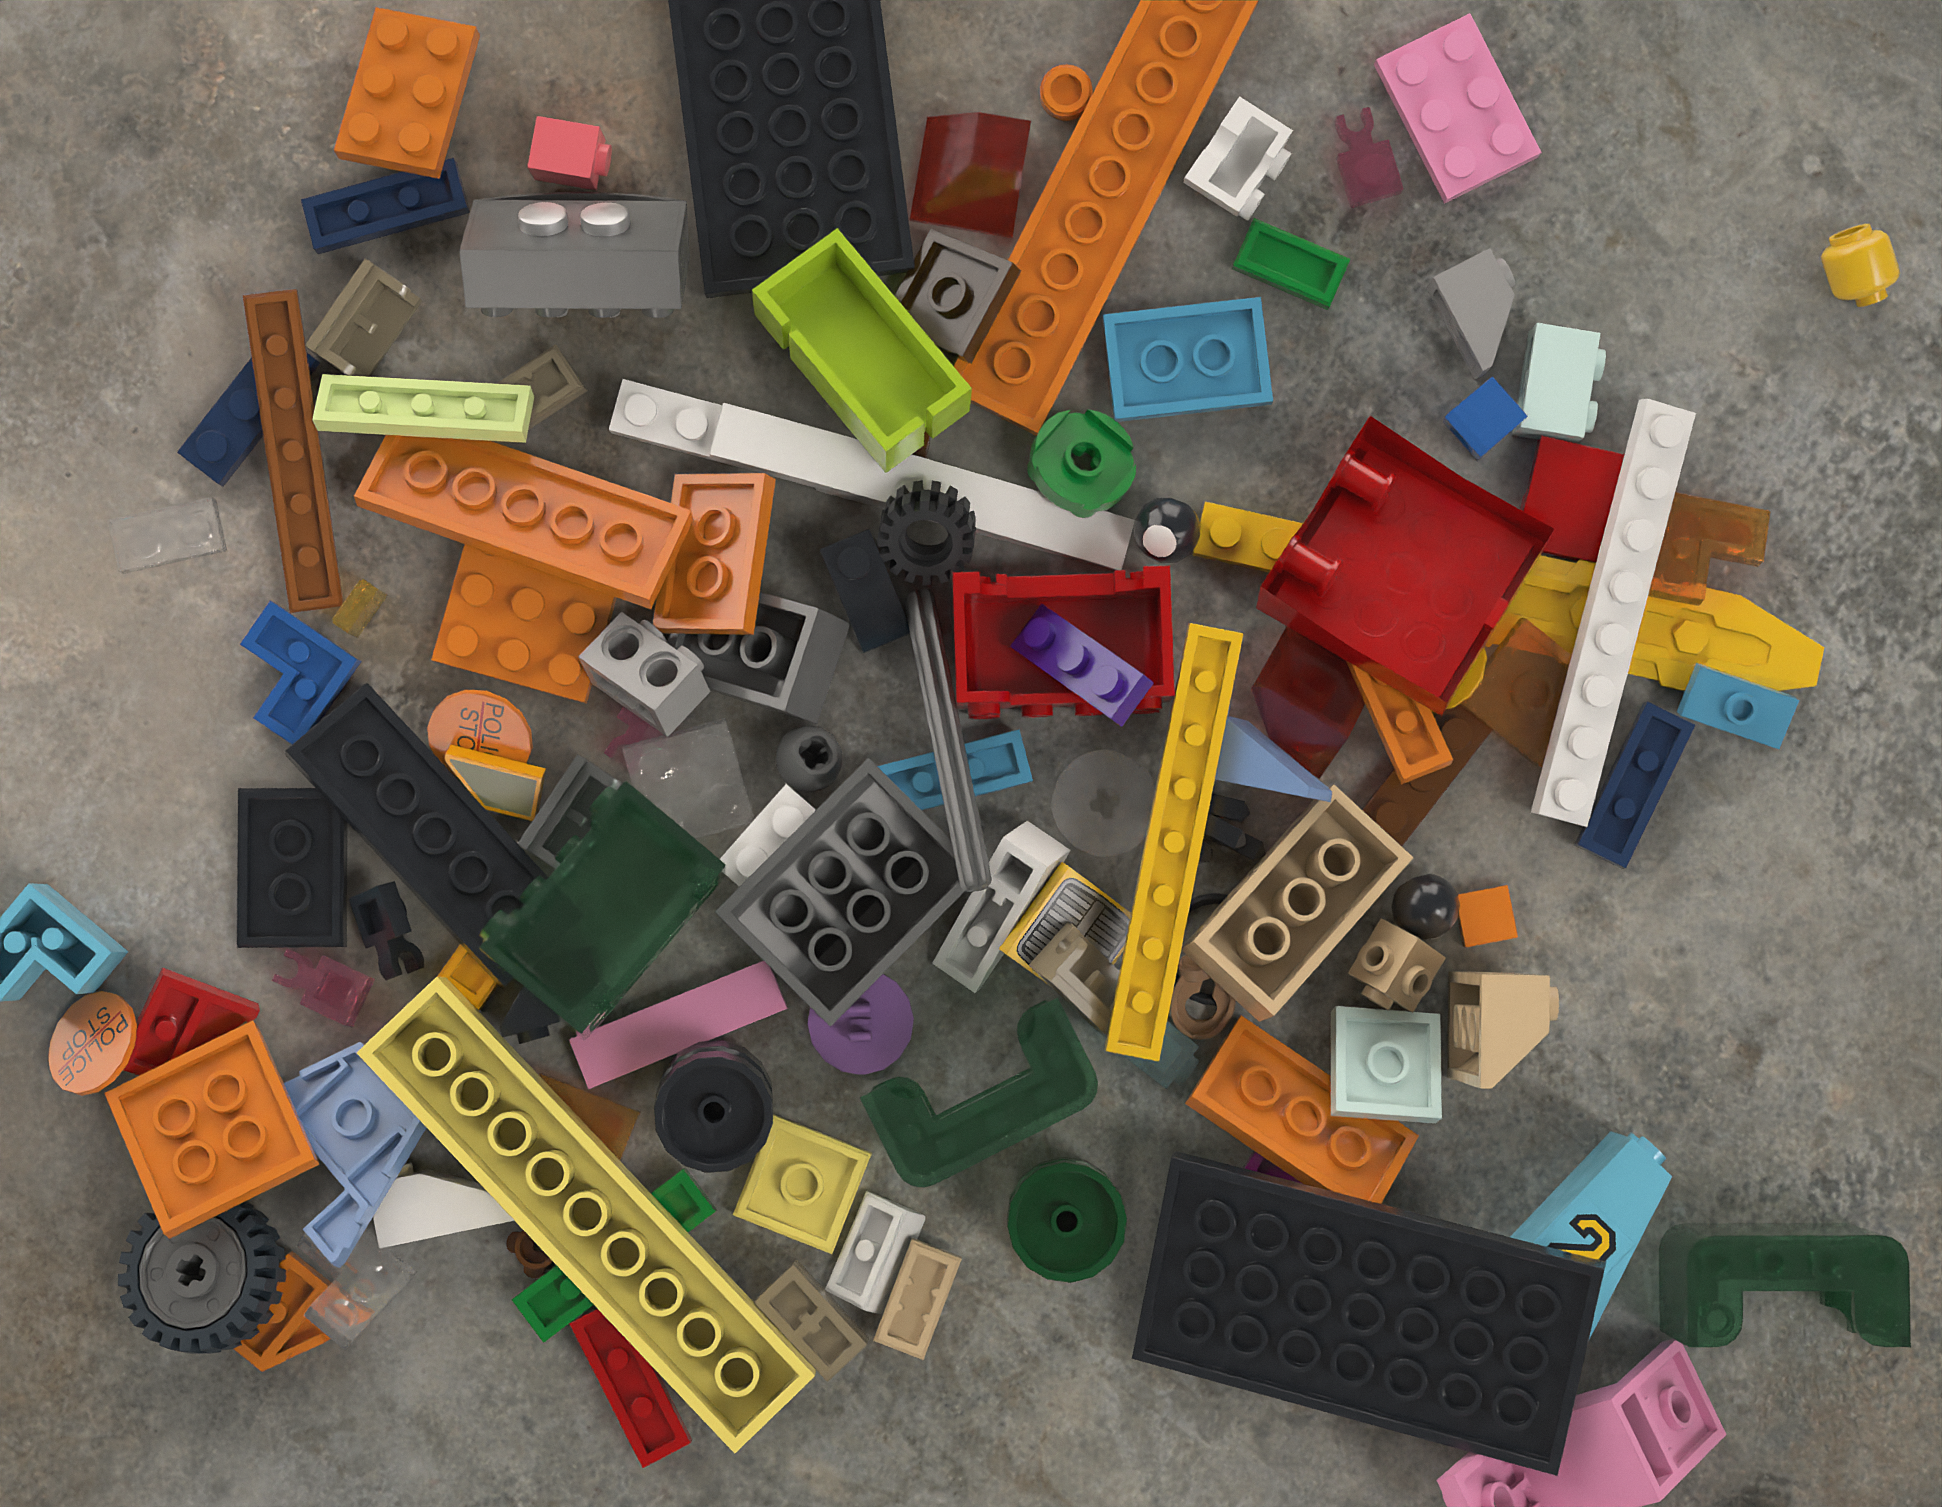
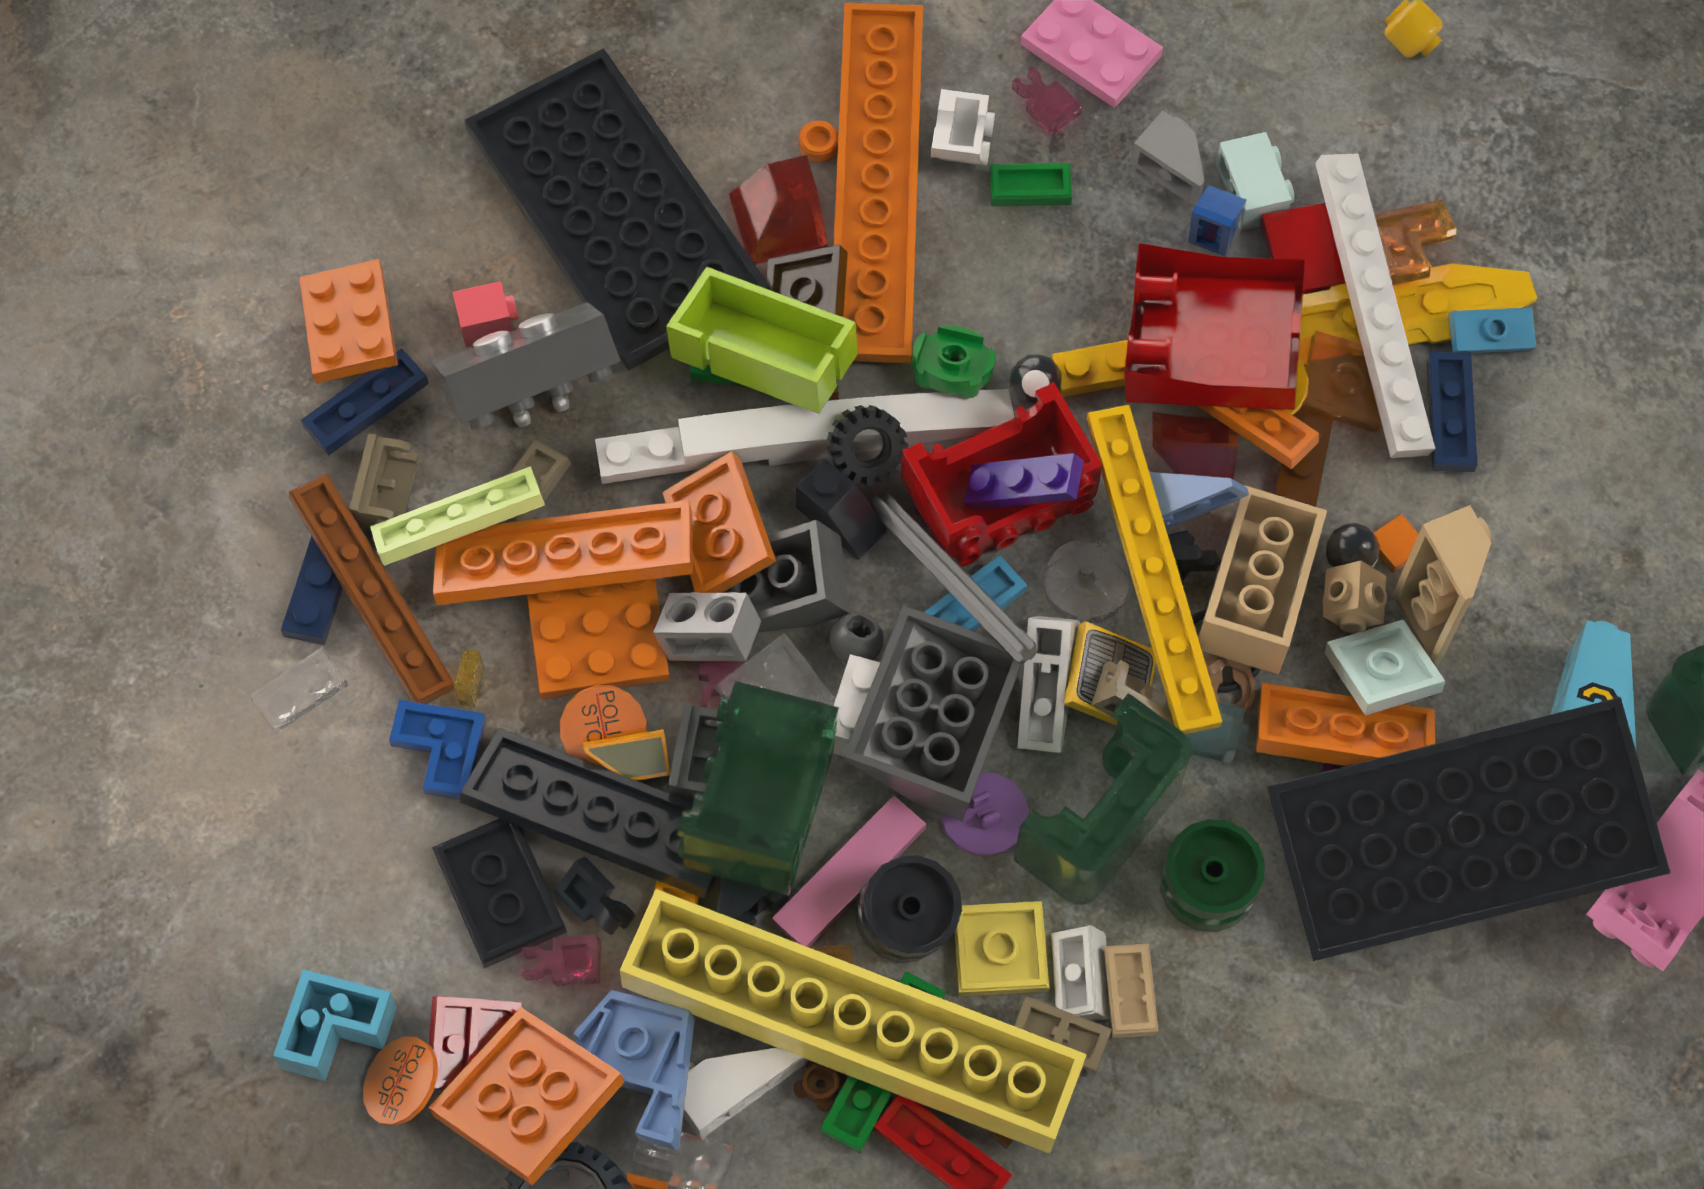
camera: 30 degrees left, 20 degrees down
(1187, 359) = (991, 269): dark azure plate -> none

